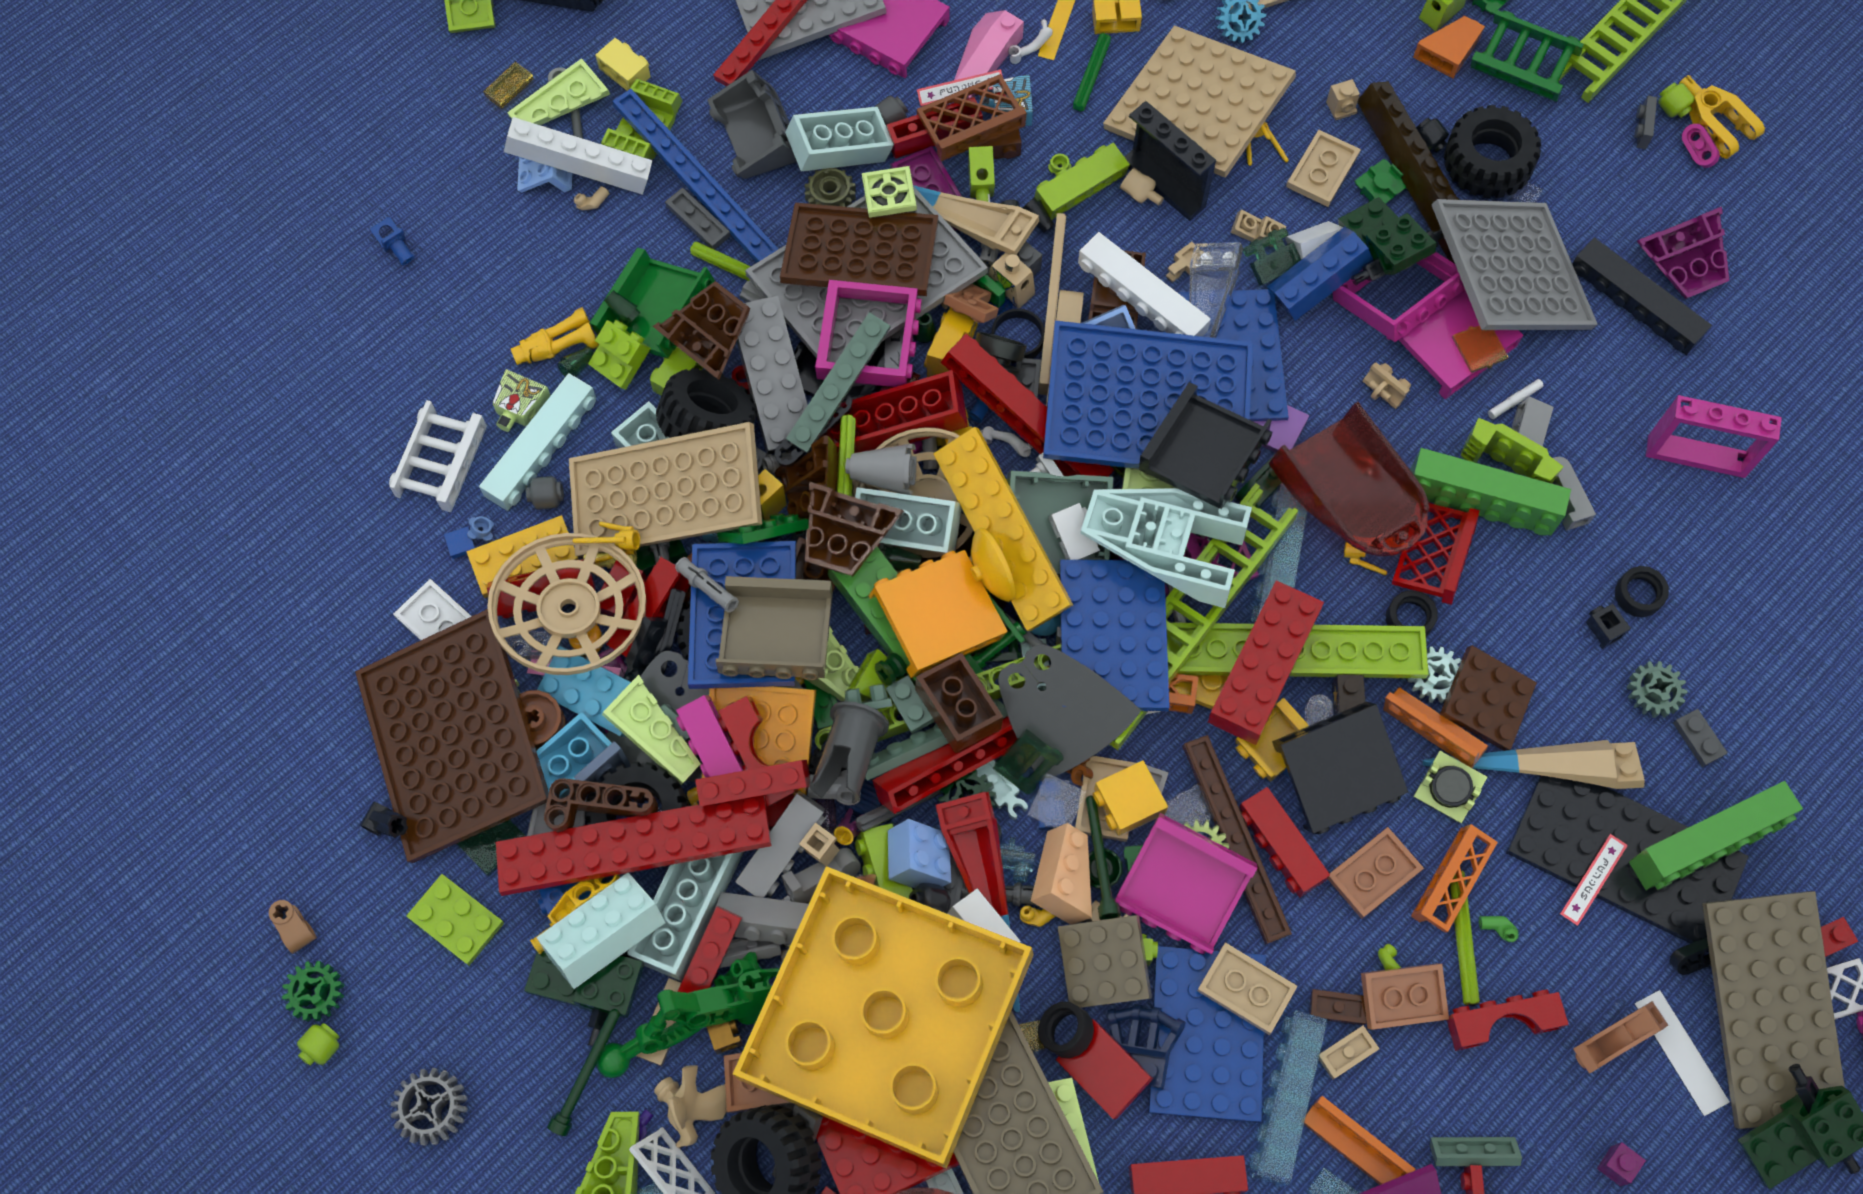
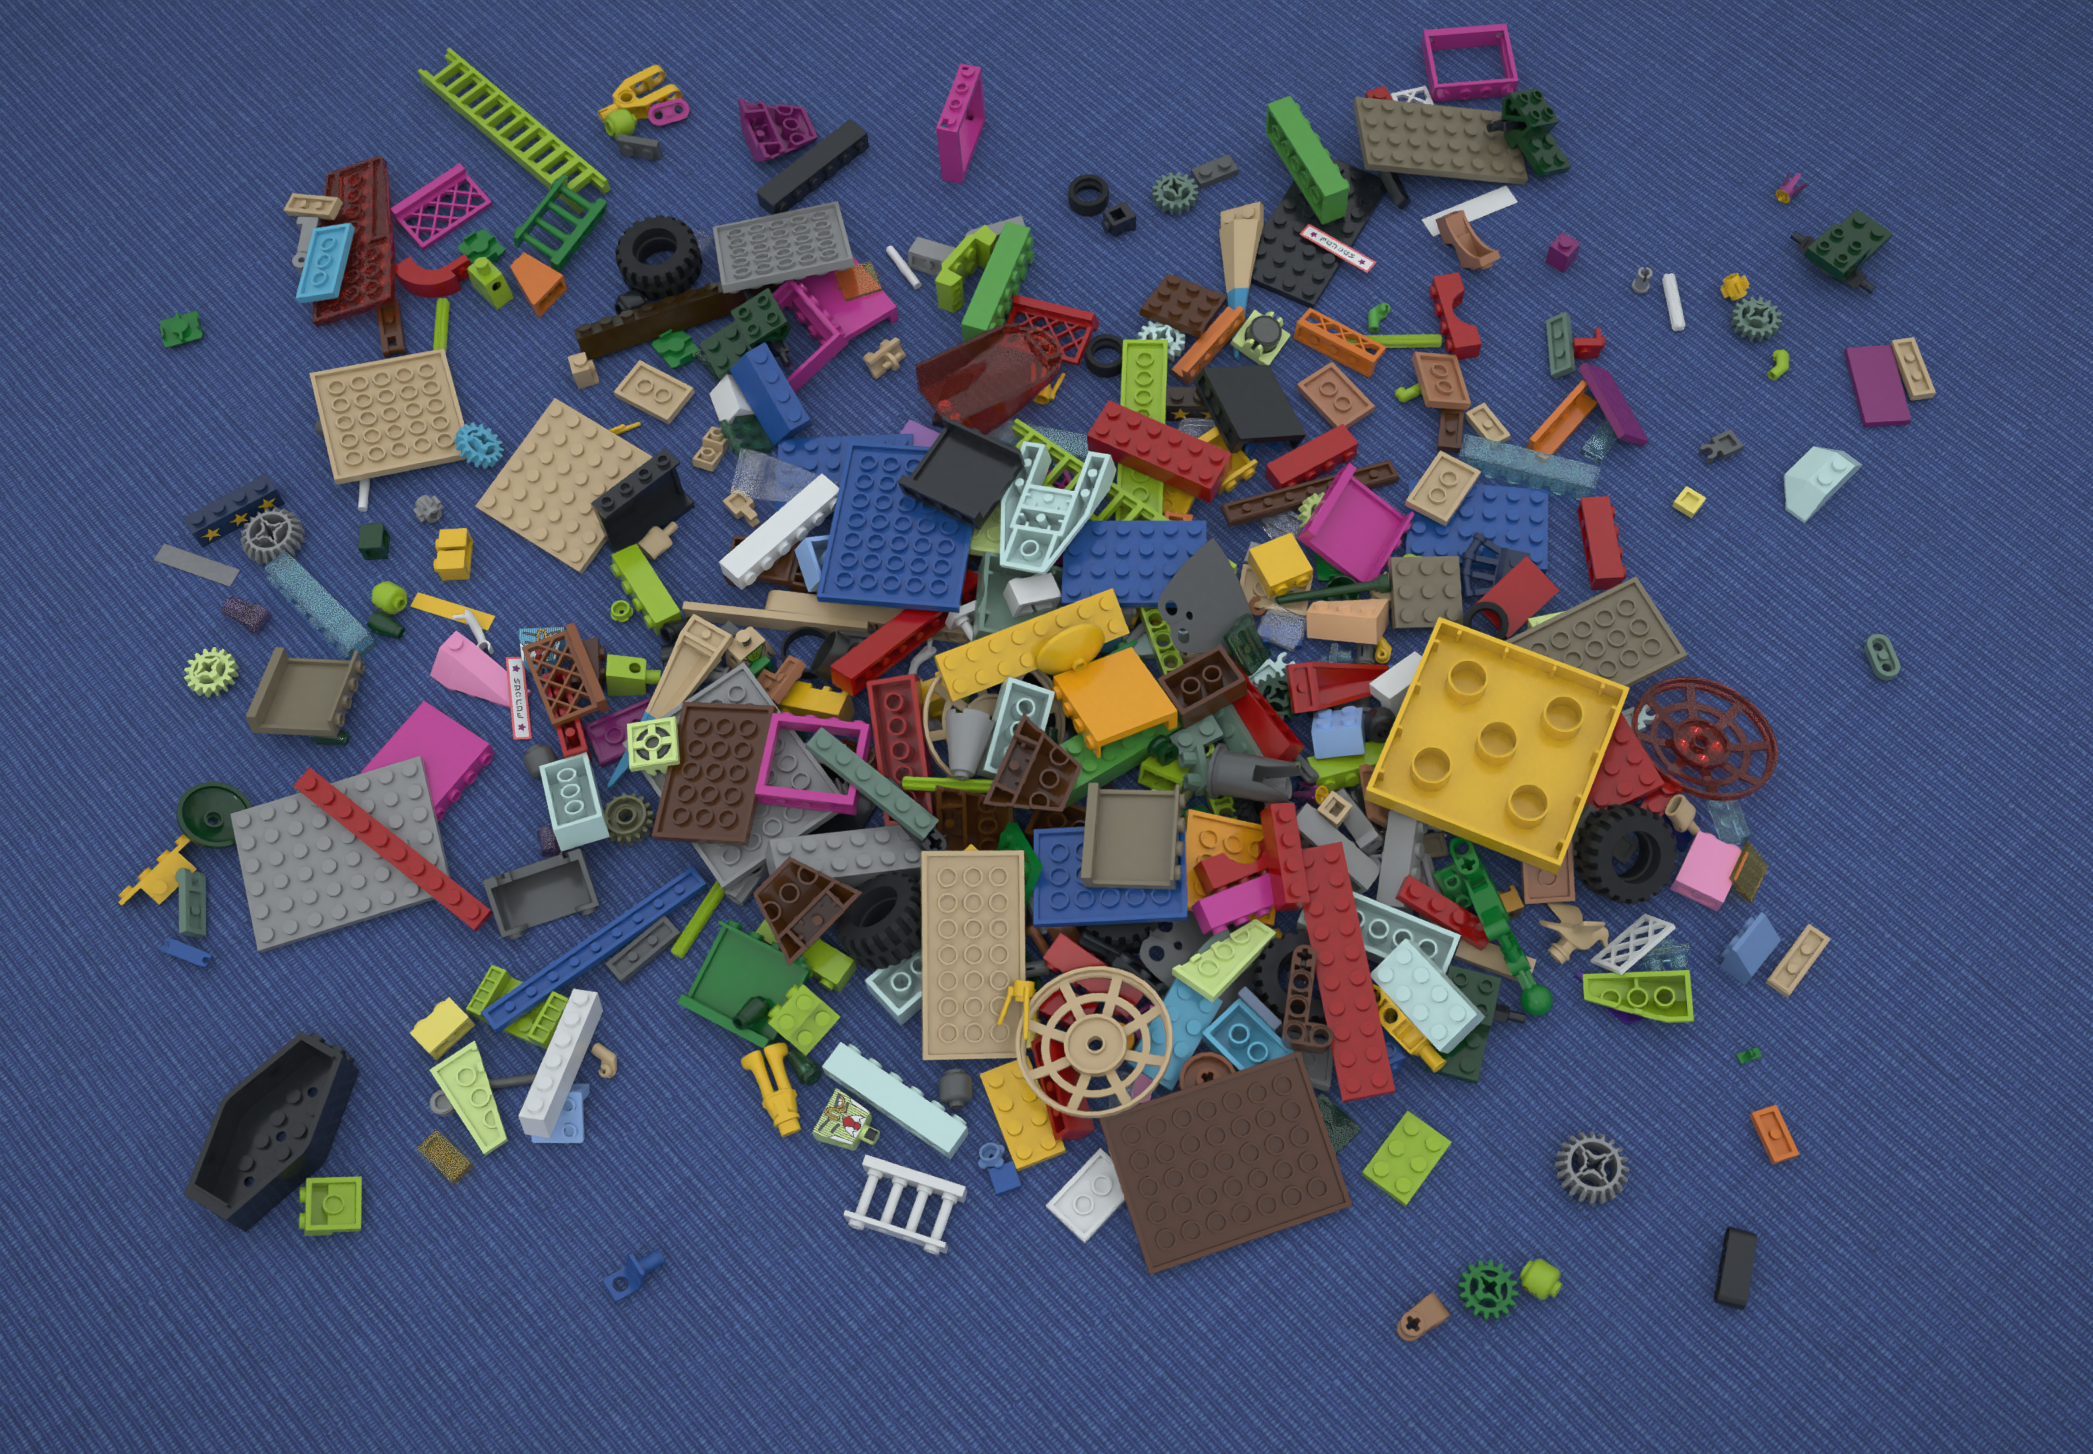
camera: 85 degrees left, 5 degrees down
(384, 821) = (1311, 1233): black piece -> none
(561, 1122) = (1596, 1045): dark green piece -> none
(699, 579) = (1083, 901): light grey pin -> none
(1091, 72) = (517, 580): green axle -> none

